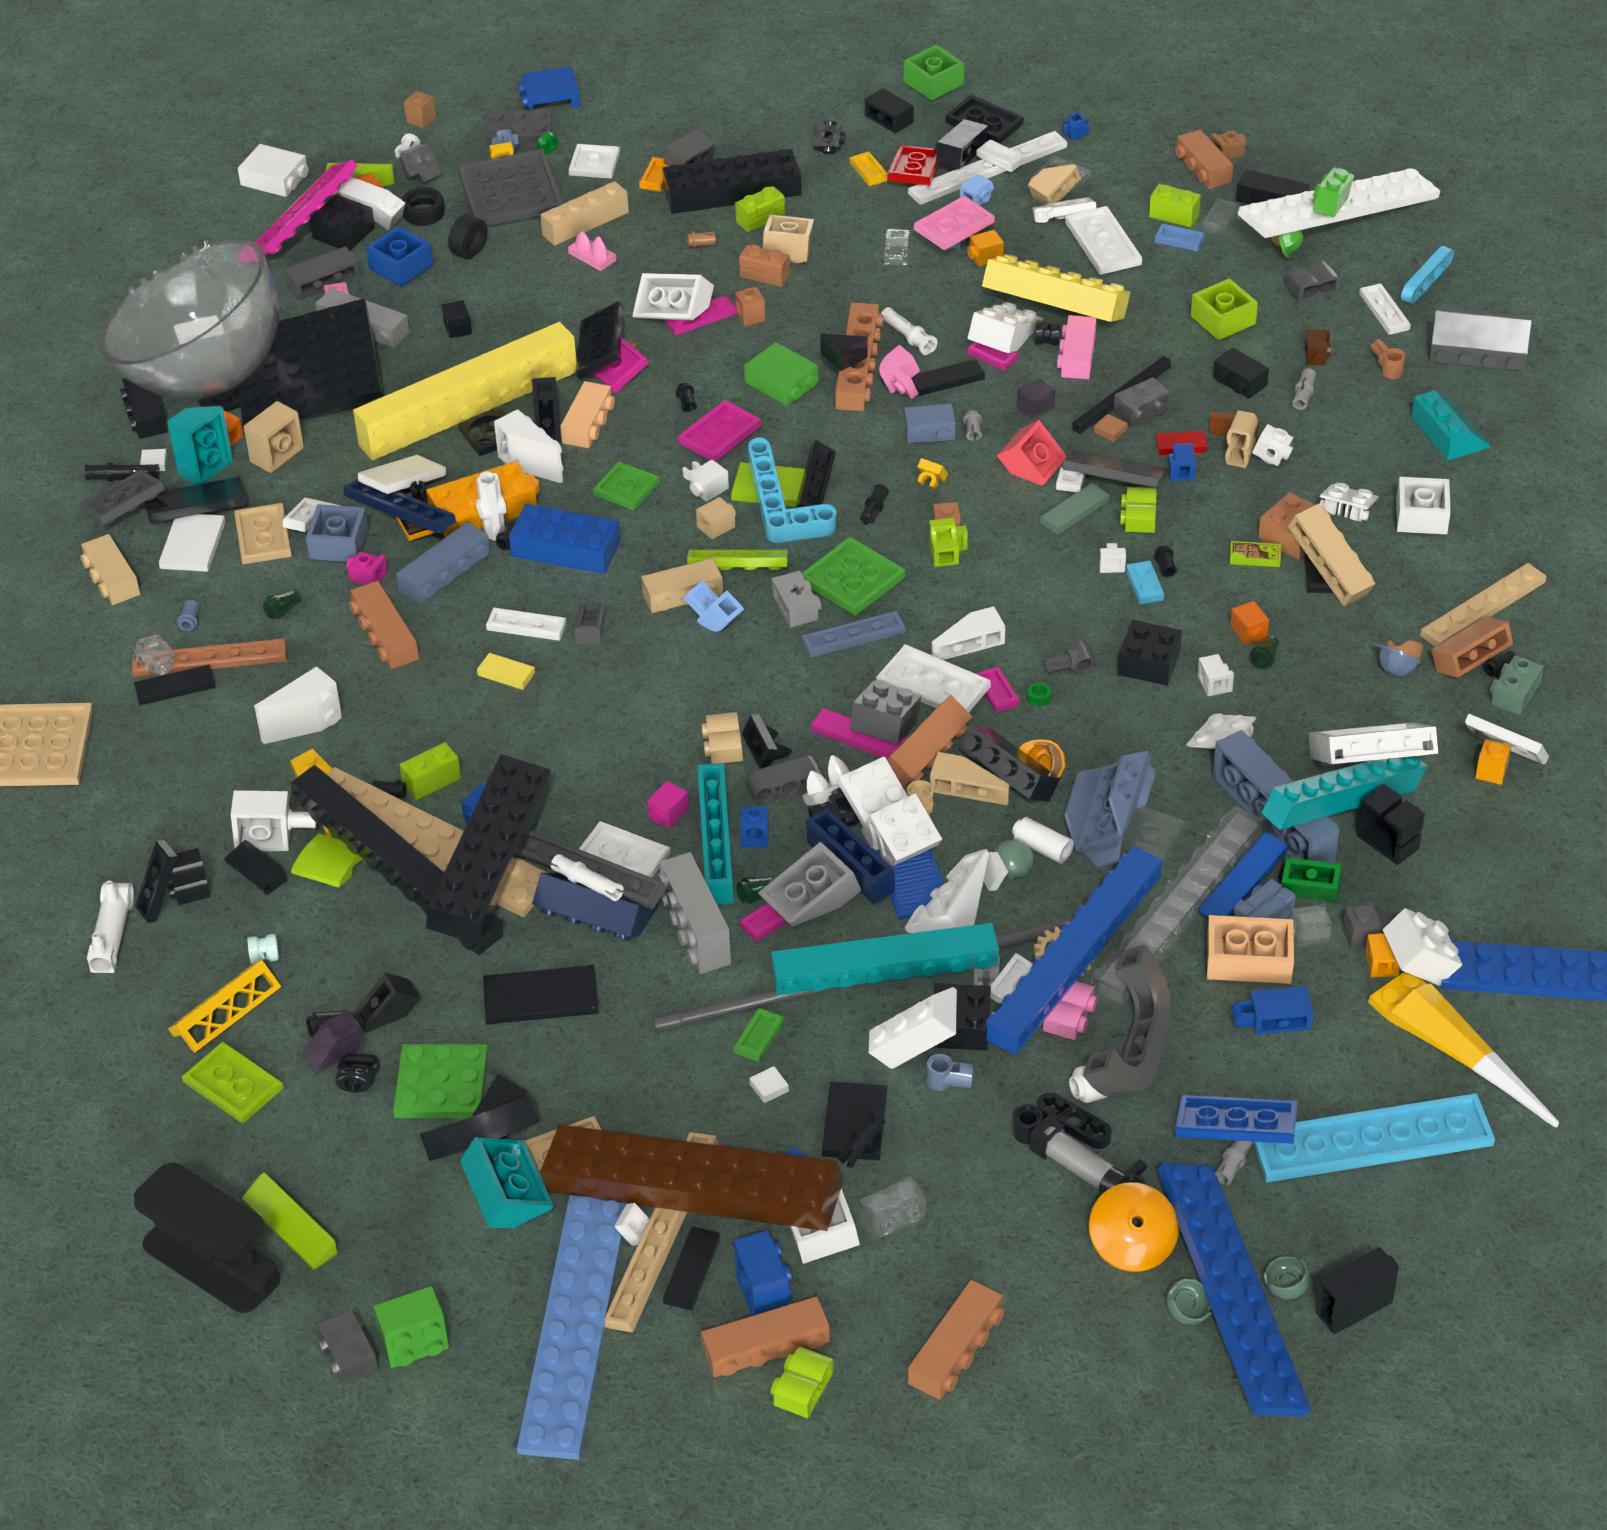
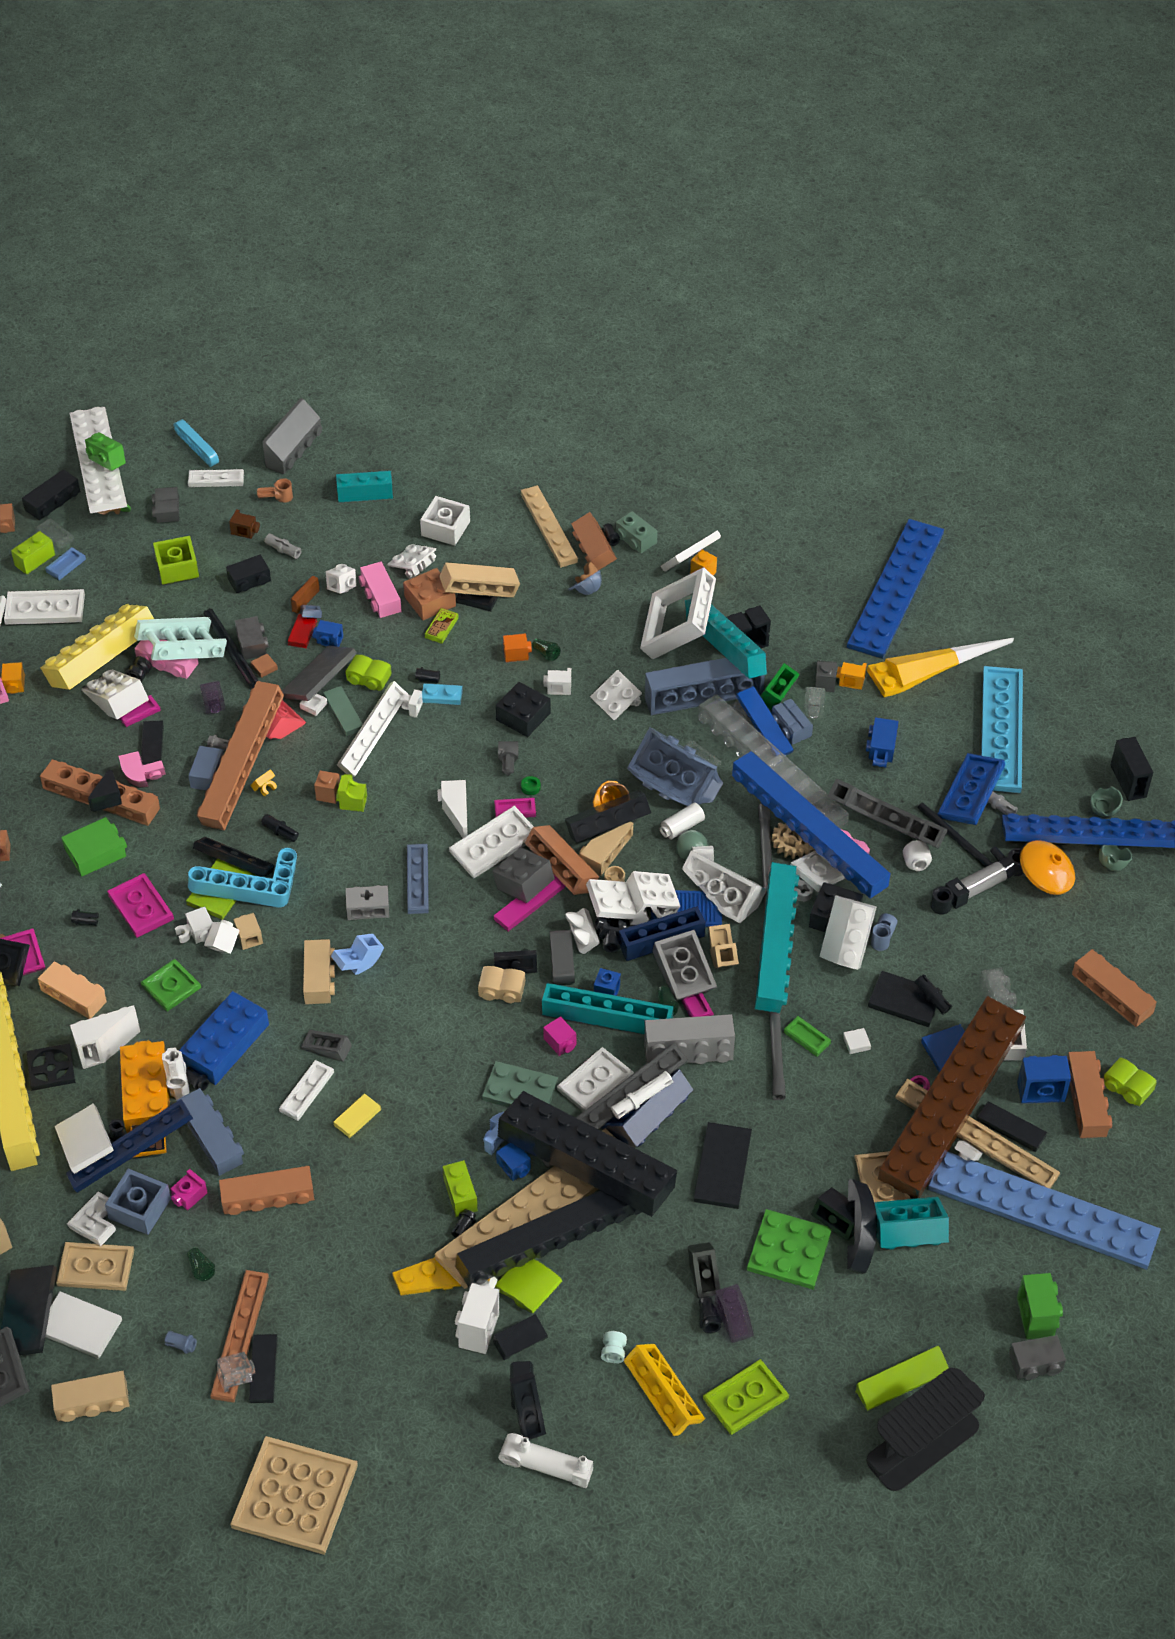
camera: 75 degrees left, 5 degrees up
(299, 708) = (350, 1258): white slope -> none
(357, 1078) = (770, 1305): black piece -> none
(546, 406) = (49, 1016): black slope -> none
(587, 793) = (509, 1081): none -> sand green plate
(692, 495) = (221, 937): none -> white brick
(741, 558) = (302, 928): lime plate -> none
(851, 921) = (722, 948): none -> tan brick
(853, 576) = (356, 860): bright green plate -> none
(914, 334) = (91, 751): white pin -> none
(947, 433) = (240, 755): none -> nougat brick
(1052, 535) = (372, 729): none -> white plate
(1080, 1132) = (945, 869): black beam -> none
(1106, 329) = (178, 629): none -> light aqua fence
(1155, 1121) = (955, 835): none -> black piece
(1210, 438) = (311, 611): none -> sand blue tile
(1241, 439) = (330, 592): tan brick -> none
(1250, 949) = (829, 737): light nougat brick -> none
(1268, 488) = (380, 589): none -> bright pink brick
(1422, 946) = (862, 648): white brick -> none

